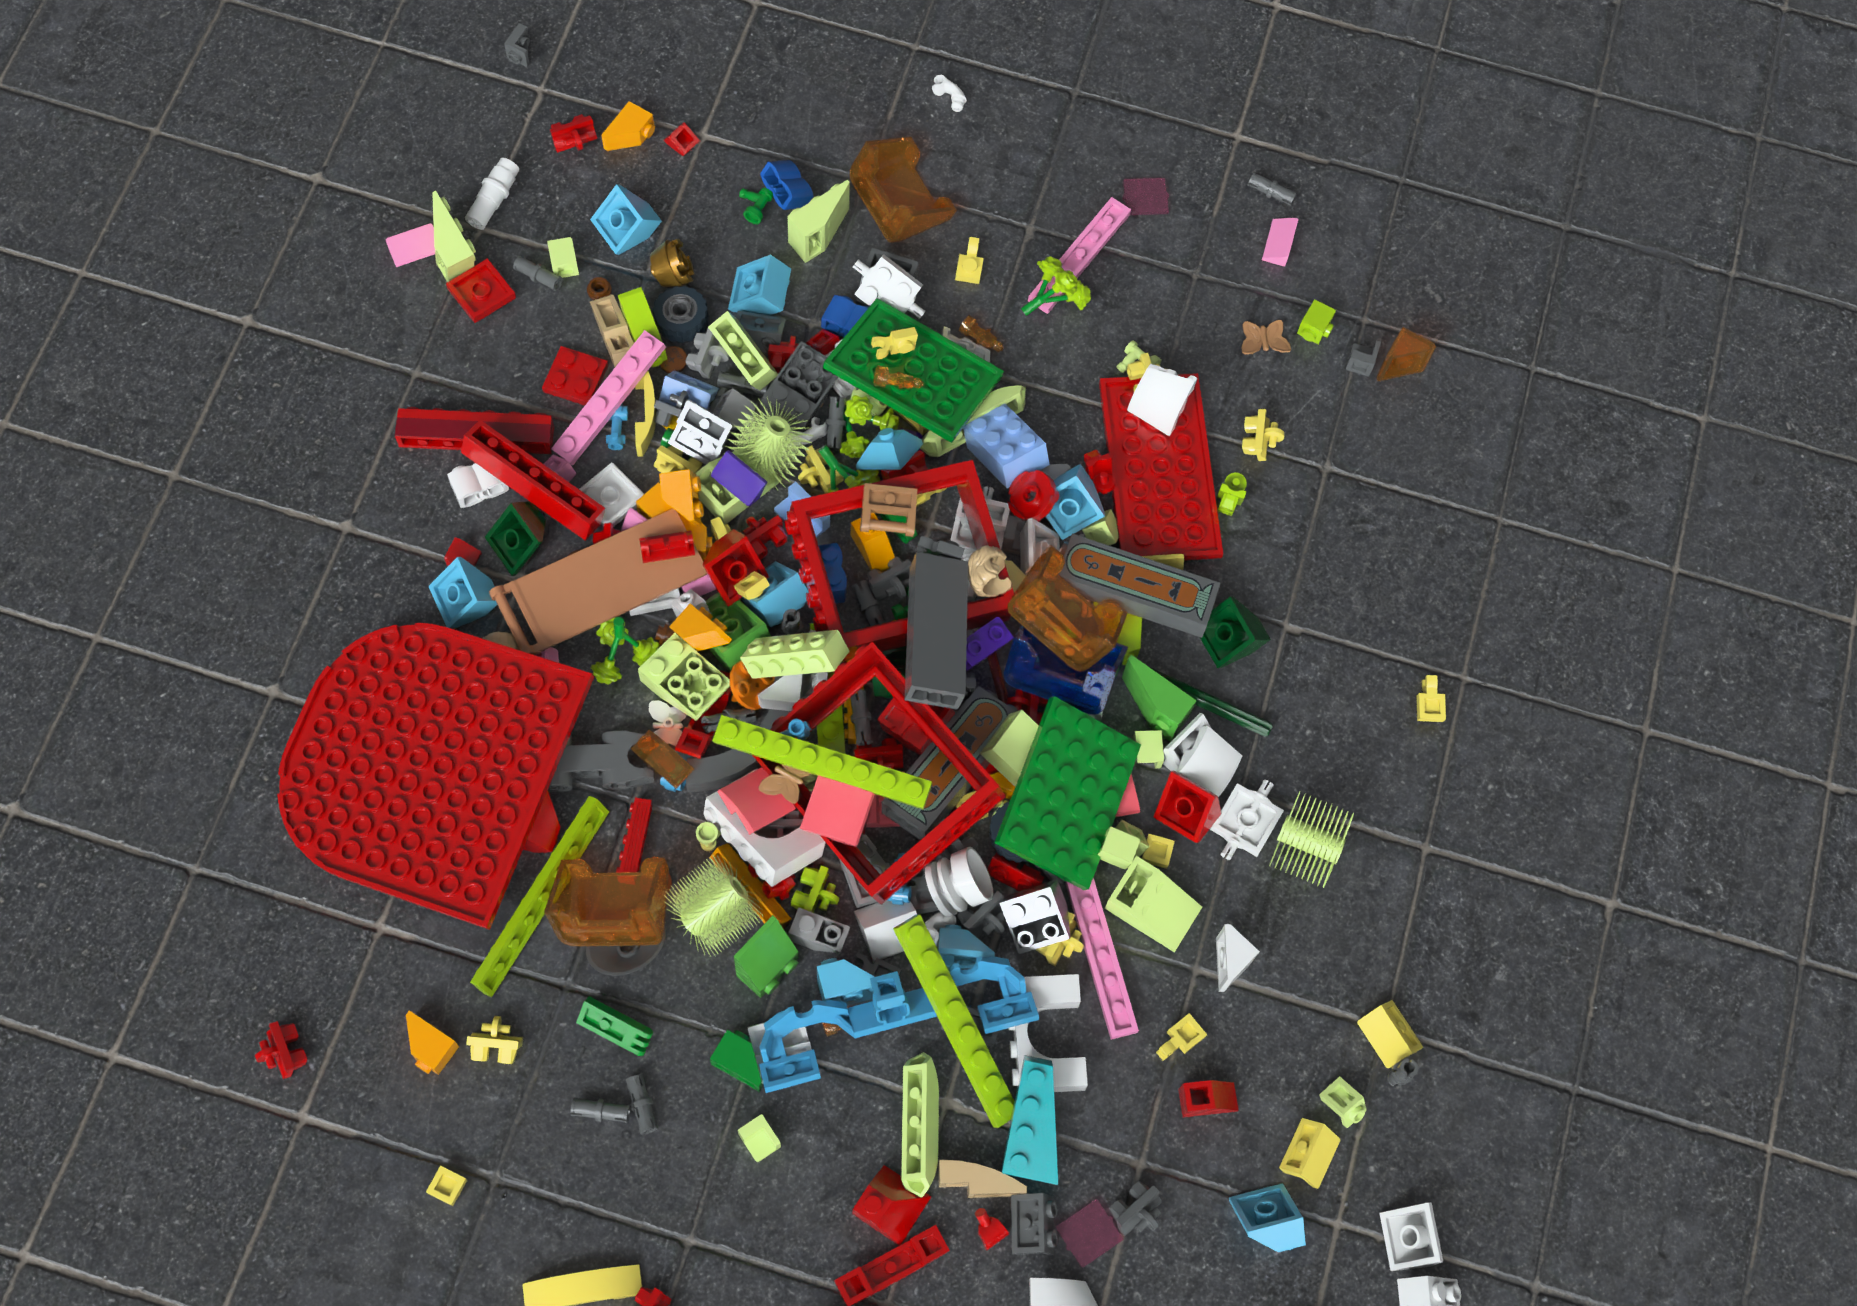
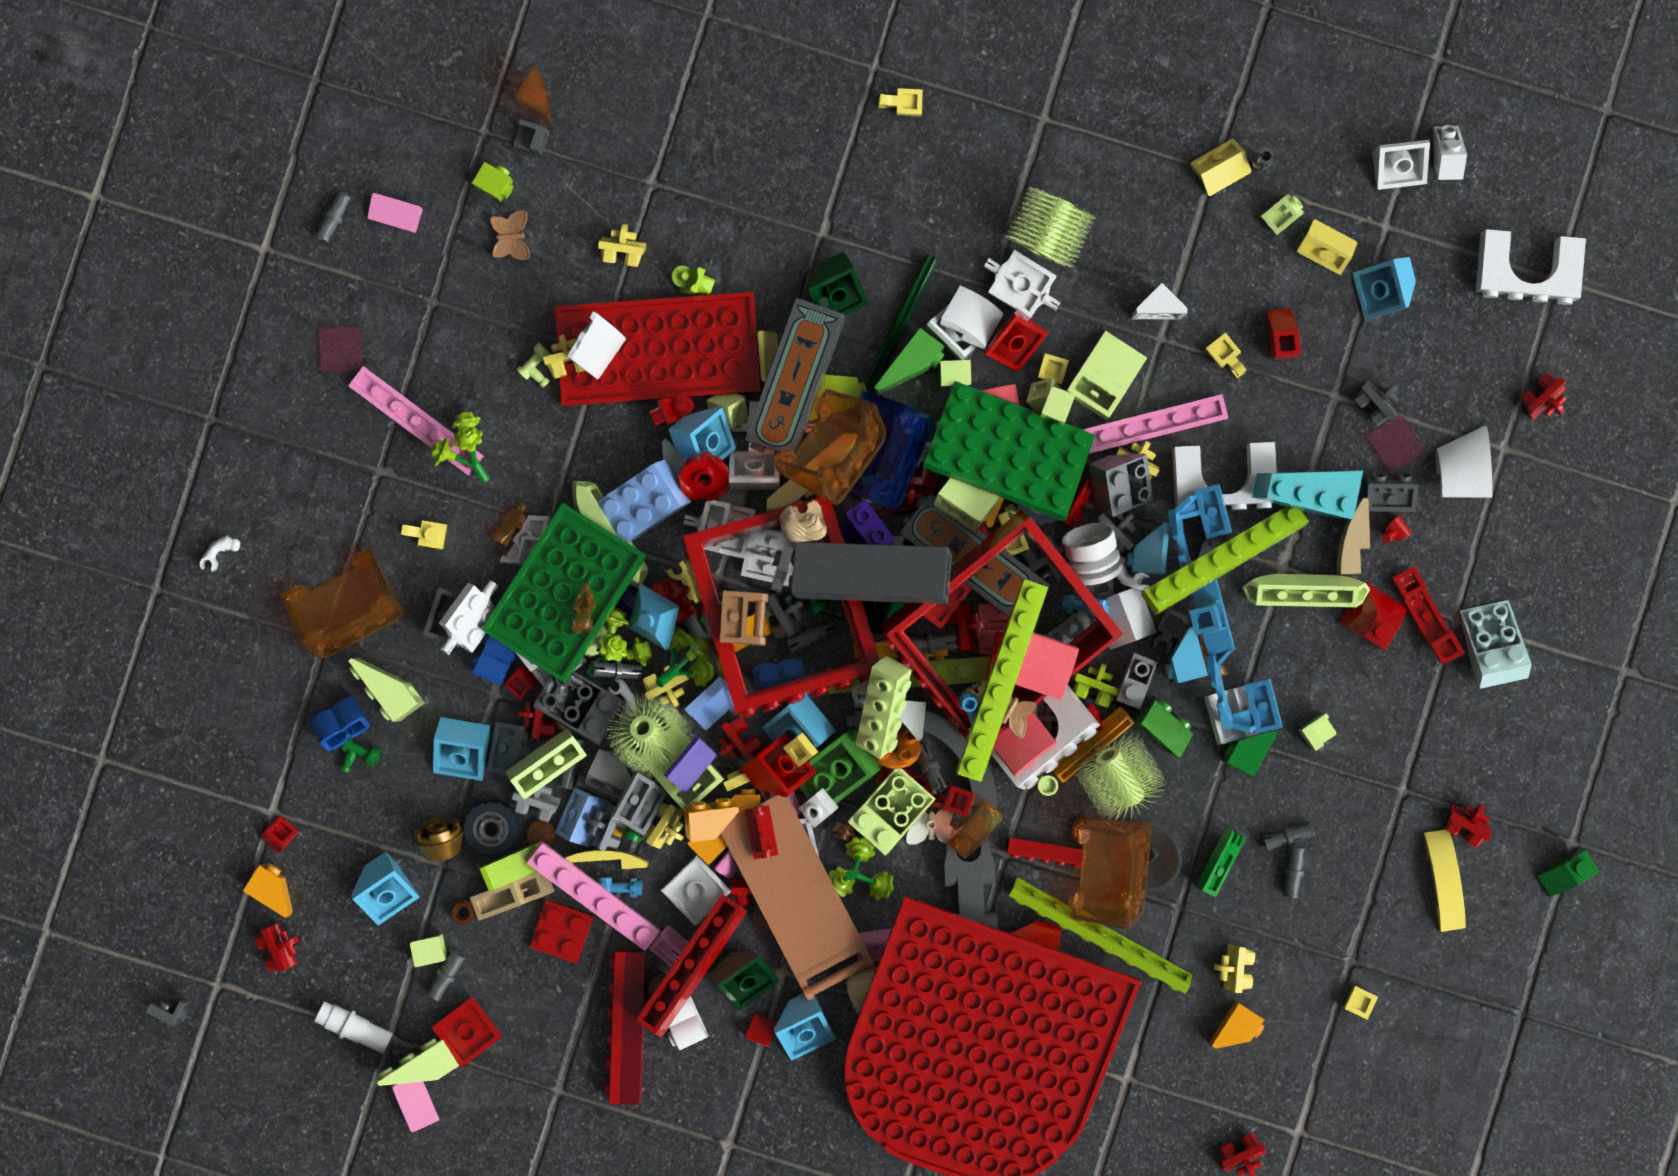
camera: 85 degrees left, 20 degrees up
(698, 630) = (846, 799): light orange slope -> none
(791, 622) = (843, 705): dark grey pin -> none
(898, 342) = (540, 604): light yellow plate -> none

